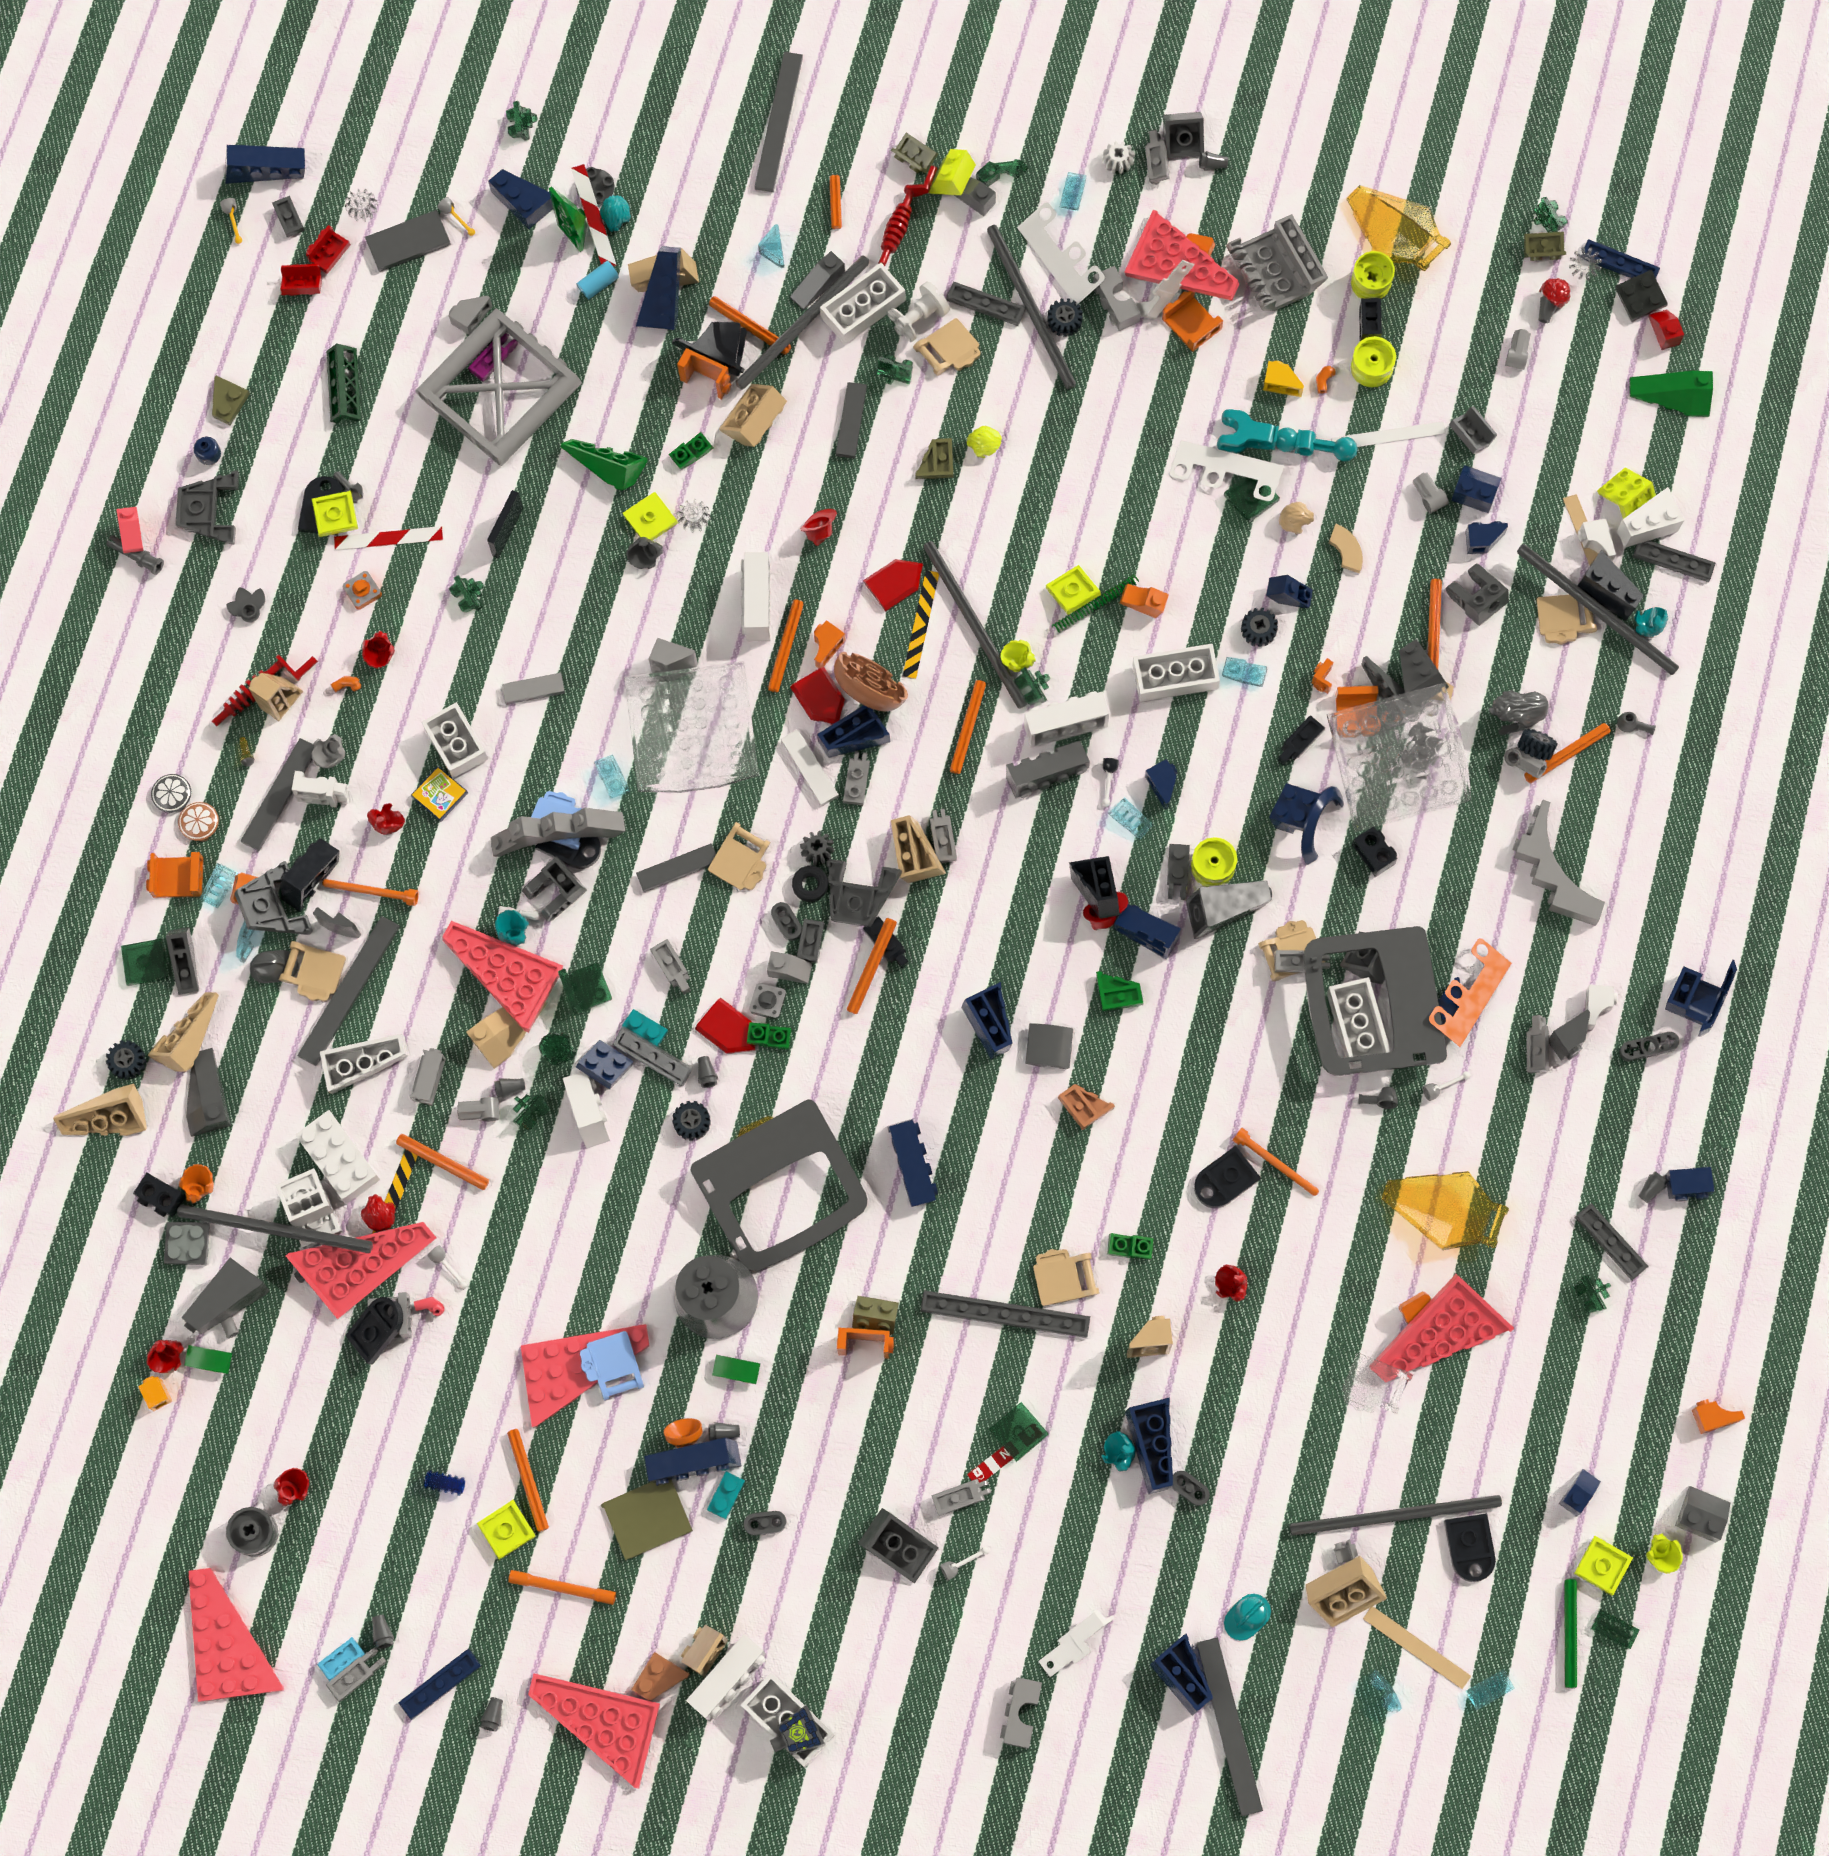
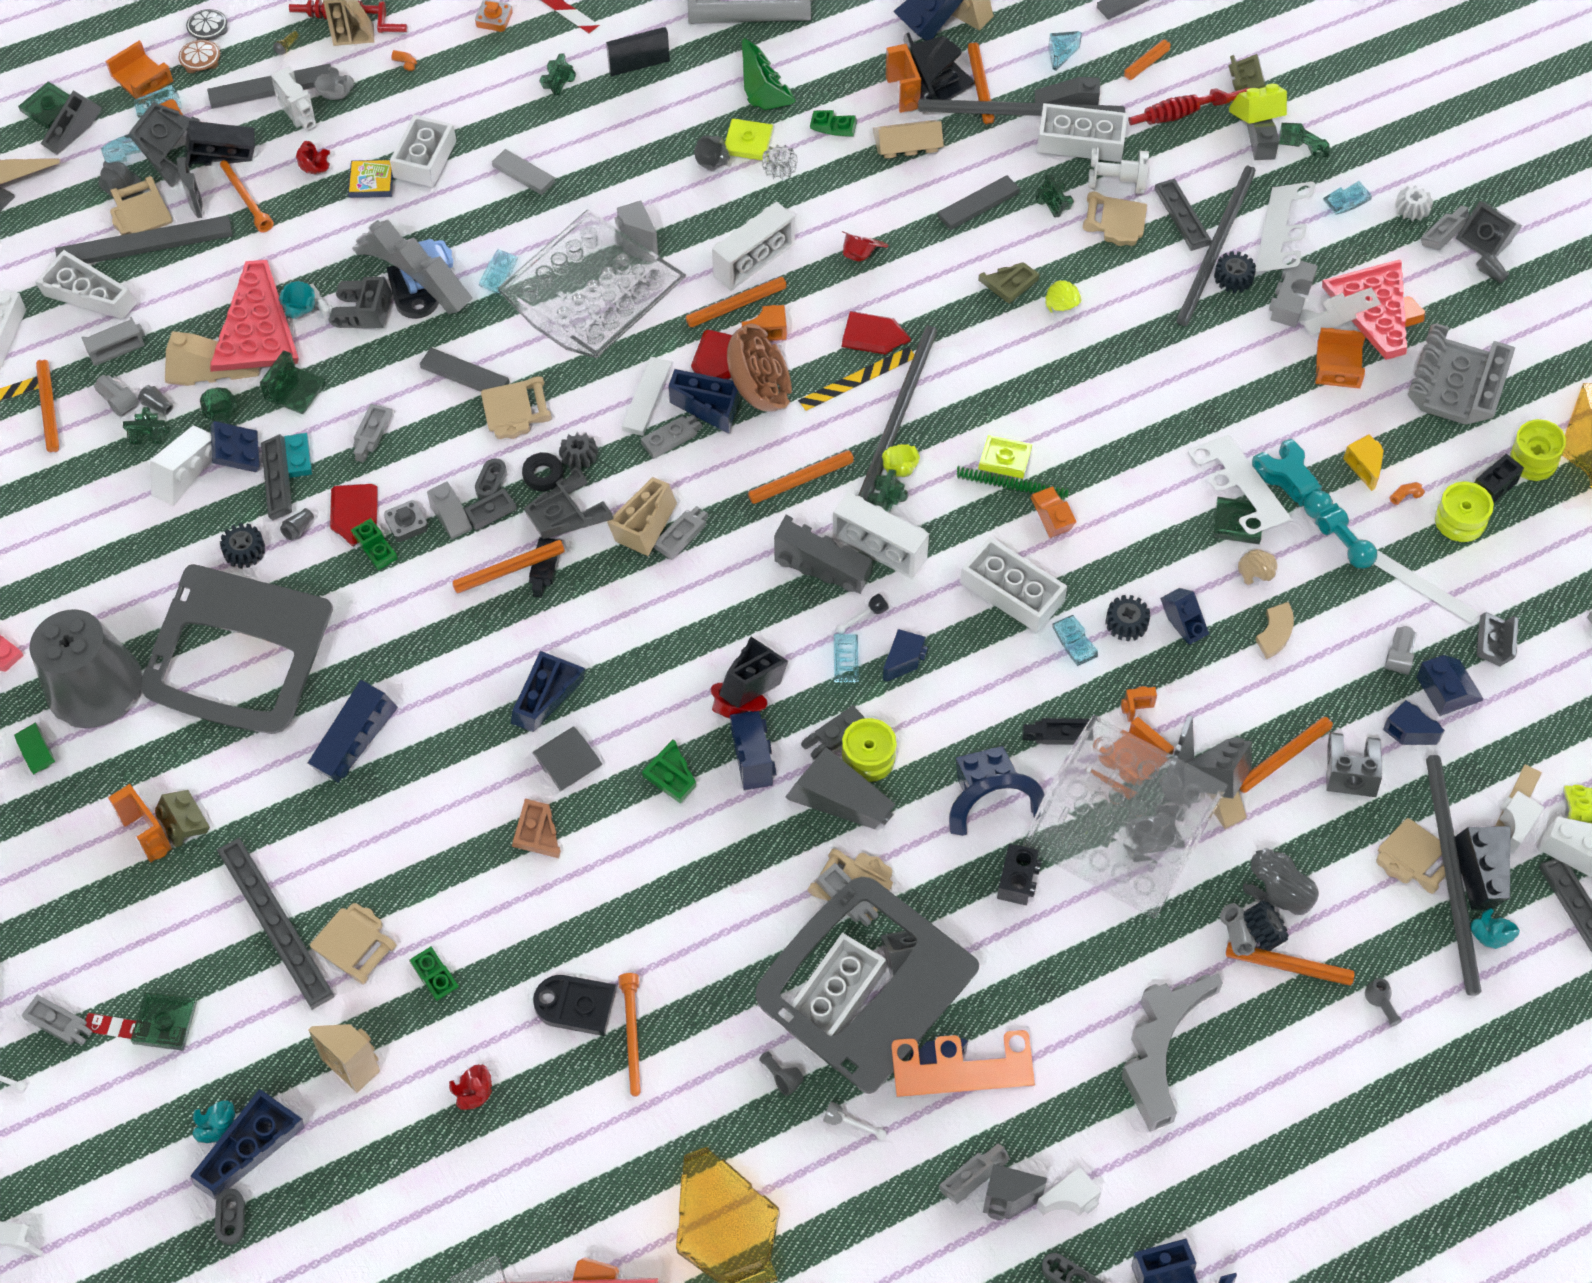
camera: 45 degrees right, 15 degrees down
(377, 650) = (450, 54): red hair -> none

